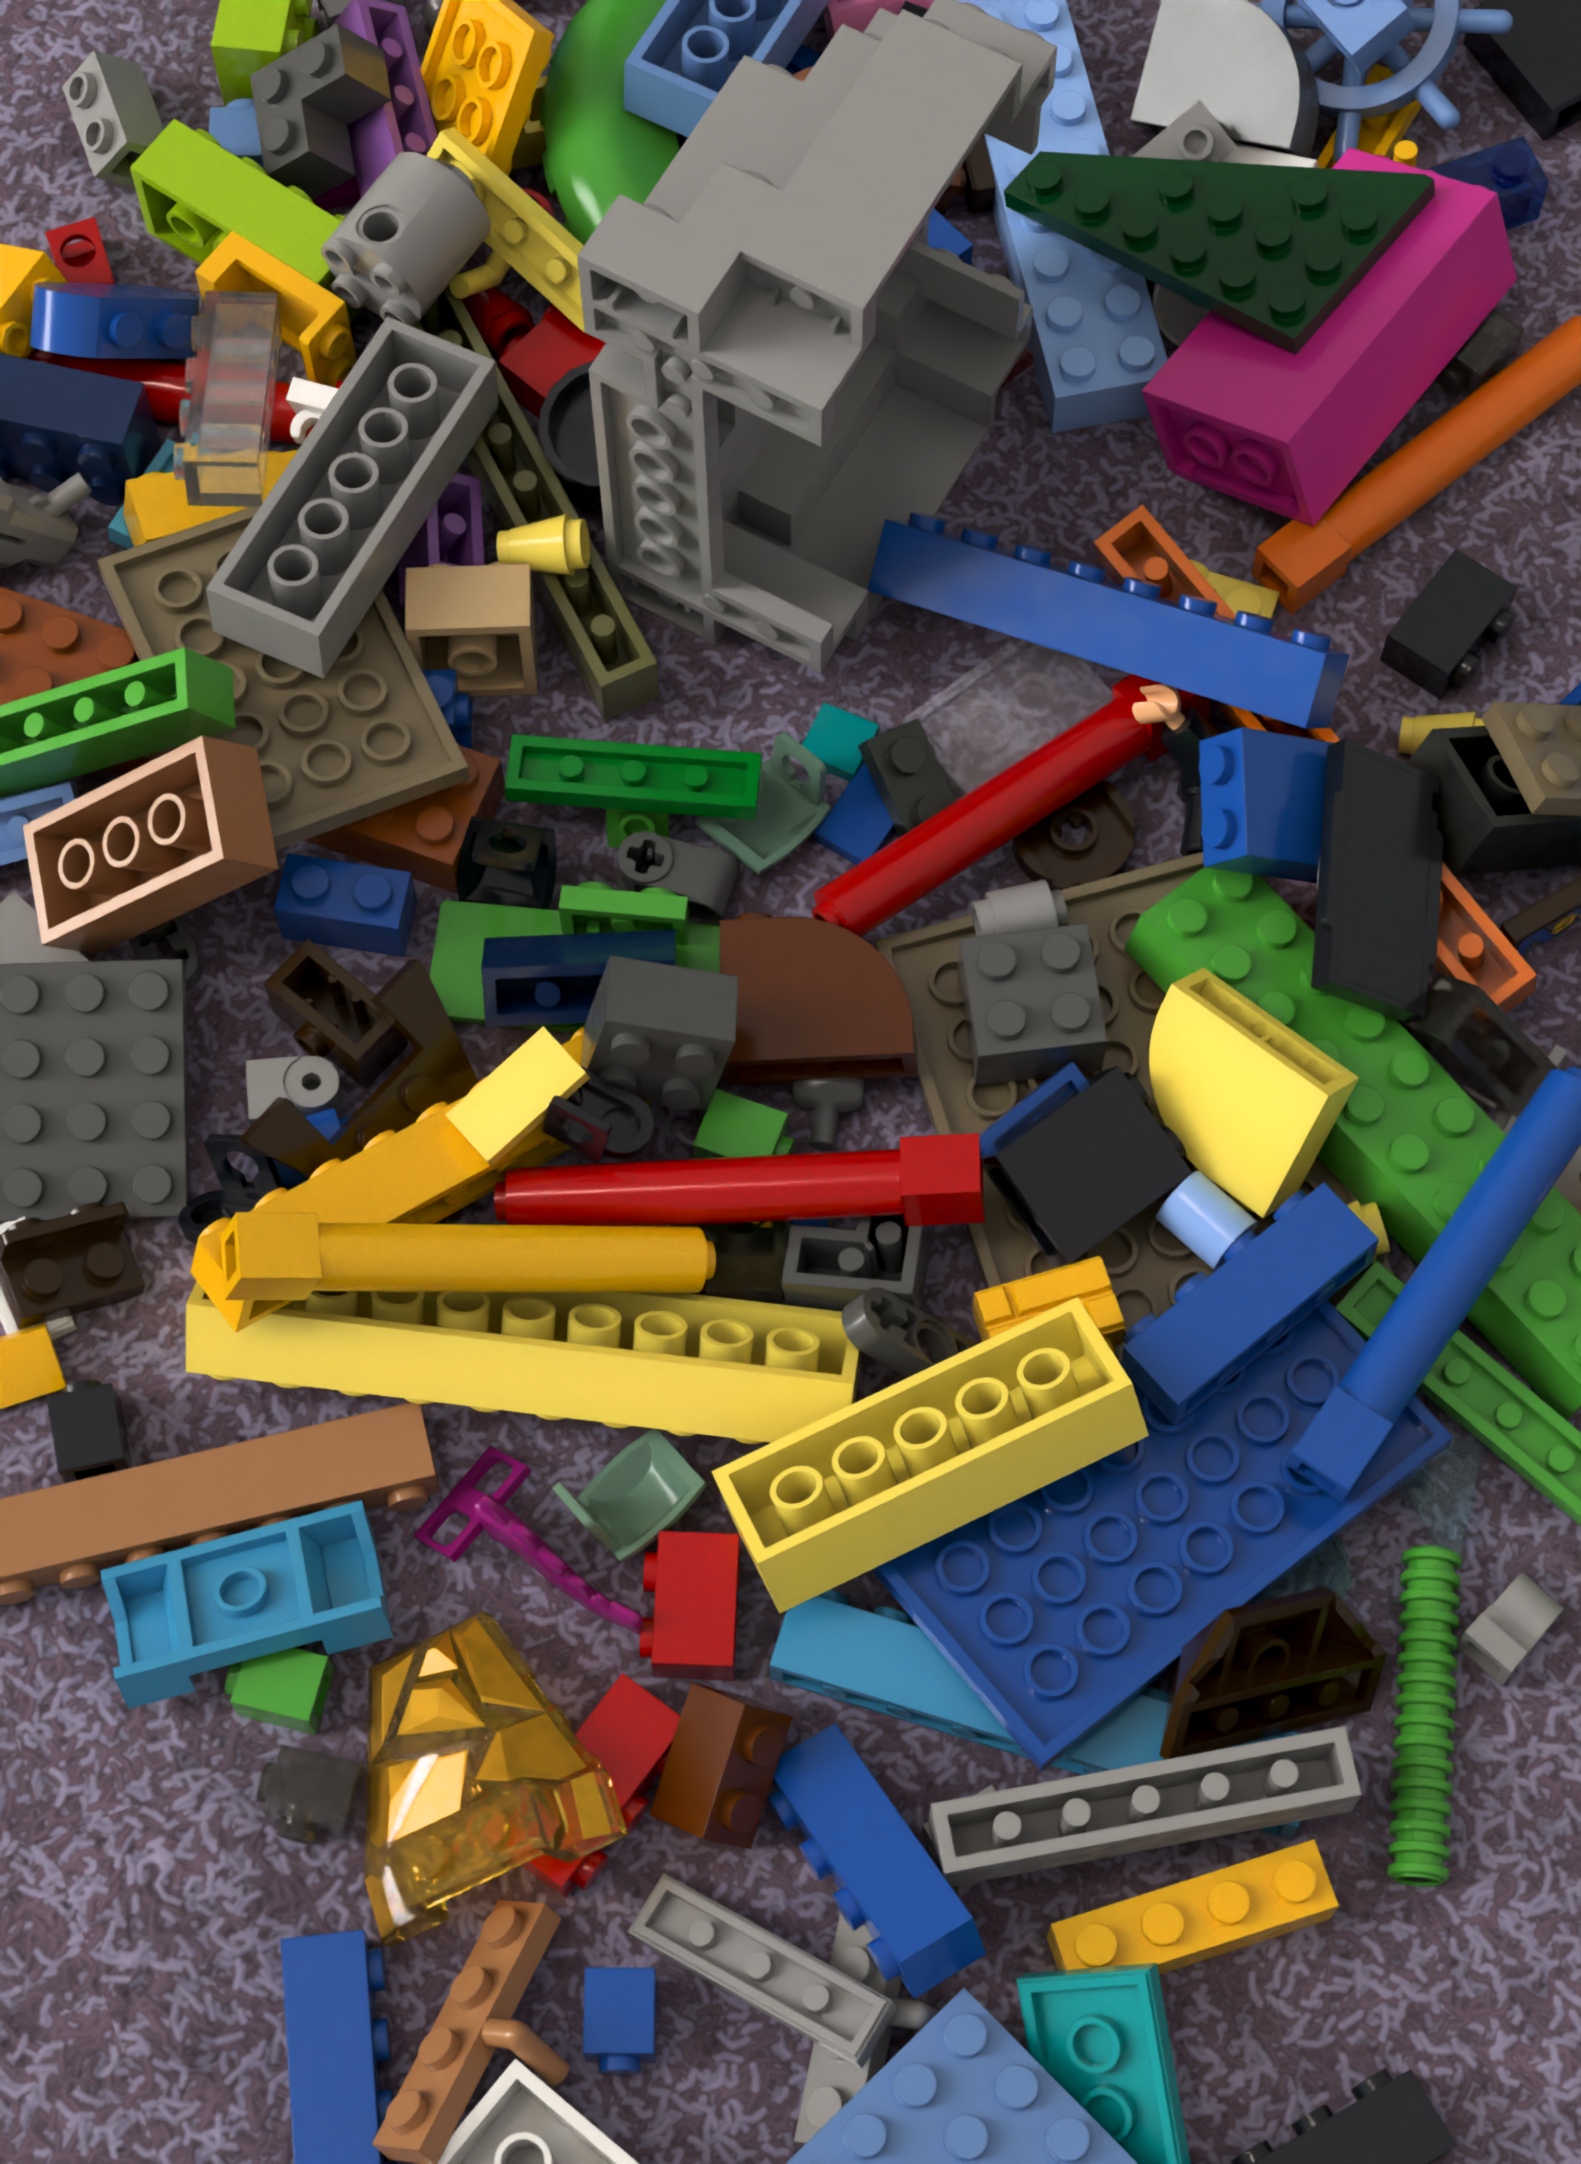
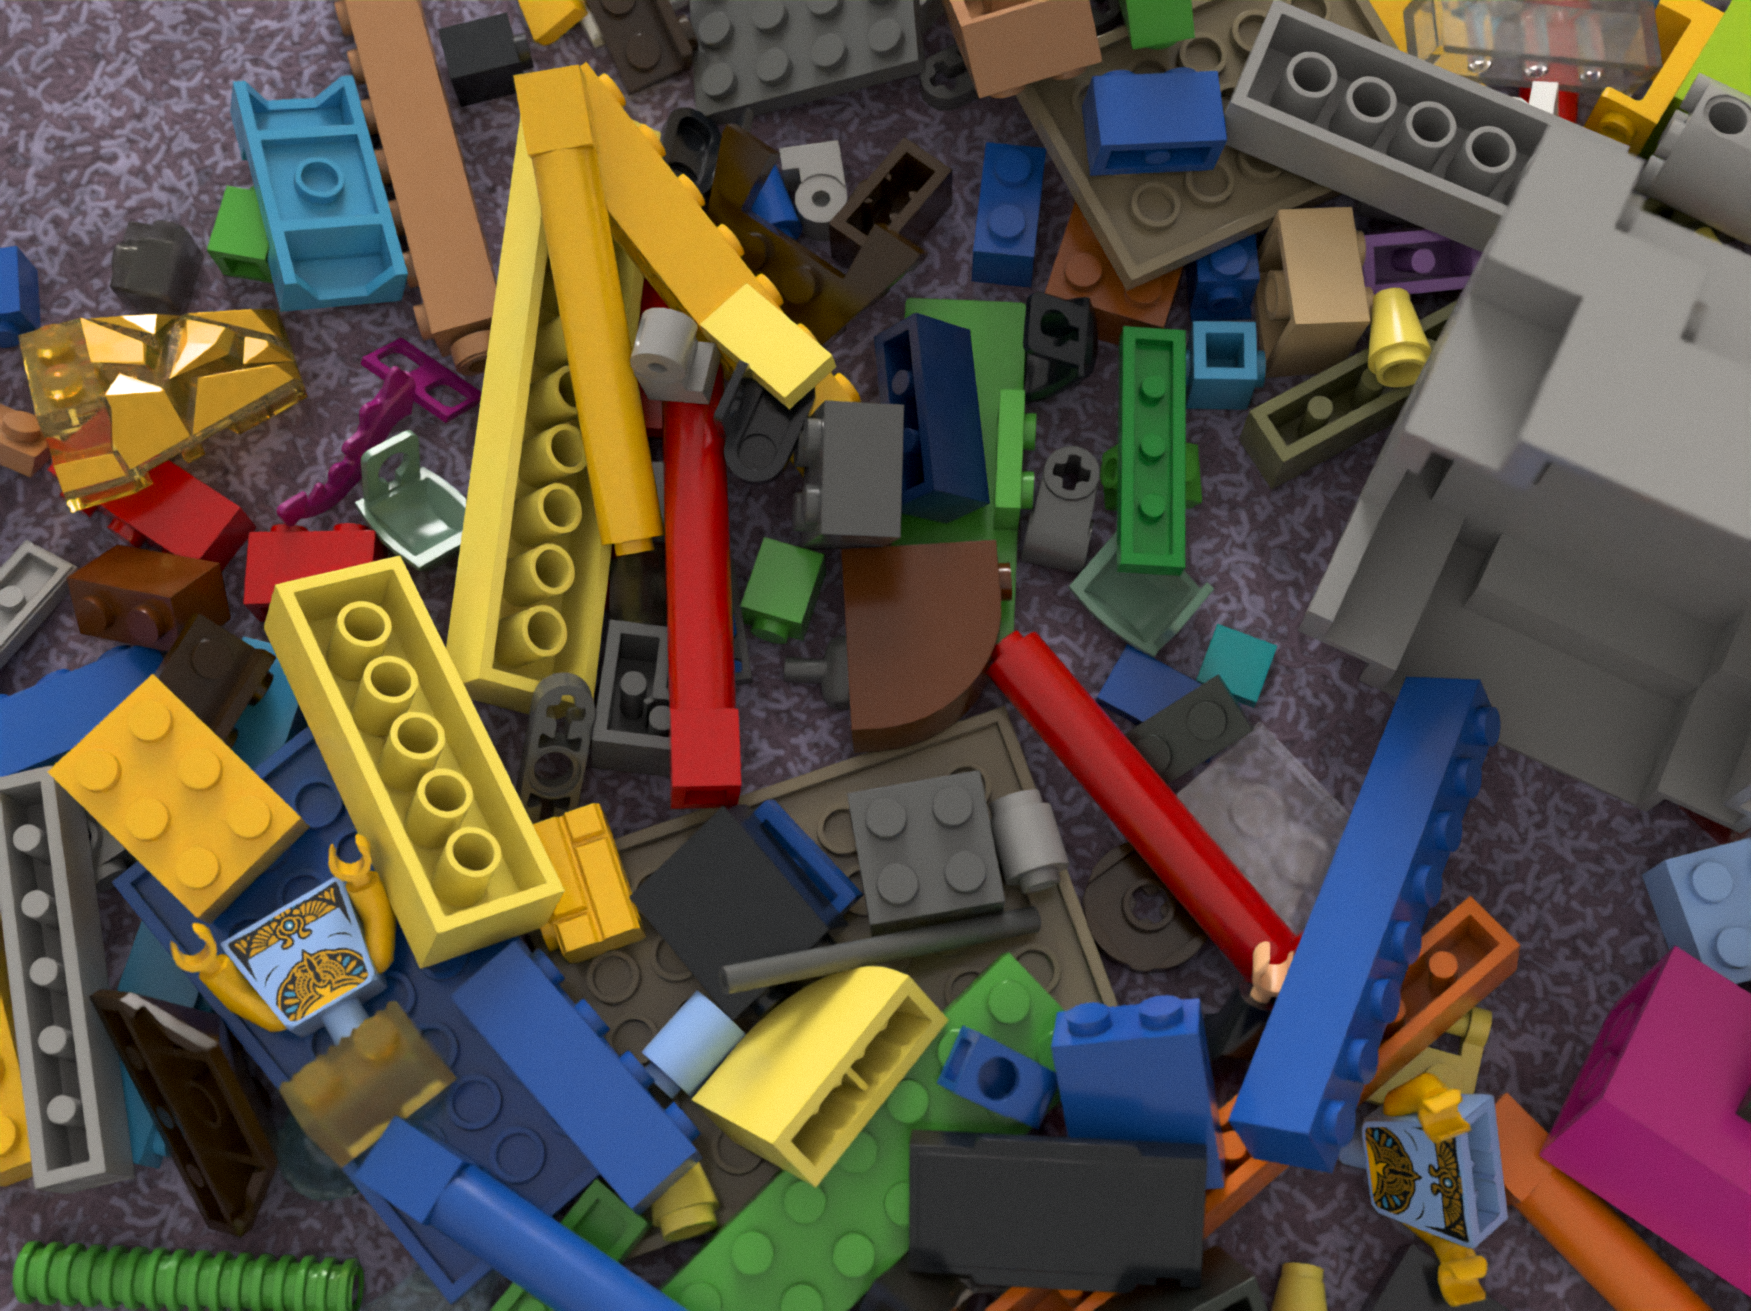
camera: 90 degrees right, 5 degrees up
(309, 723) = (1153, 122): none -> blue brick
(449, 1438) = (471, 353): none -> medium nougat tile
(524, 1188) = (671, 360): none -> light grey leg
(536, 707) = (1223, 365): none -> dark azure brick
(844, 1681) = (215, 675): none -> dark brown bracket
(973, 1667) = (179, 799): none -> yellow brick
(1131, 1543) = (308, 959): none -> torso
(1132, 1041) = (878, 950): none -> dark grey piece
(1258, 1484) = (366, 1081): none -> clear yellow brick
(1260, 923) = (998, 1078): none -> blue leg
(1338, 596) = (1438, 1173): none -> torso

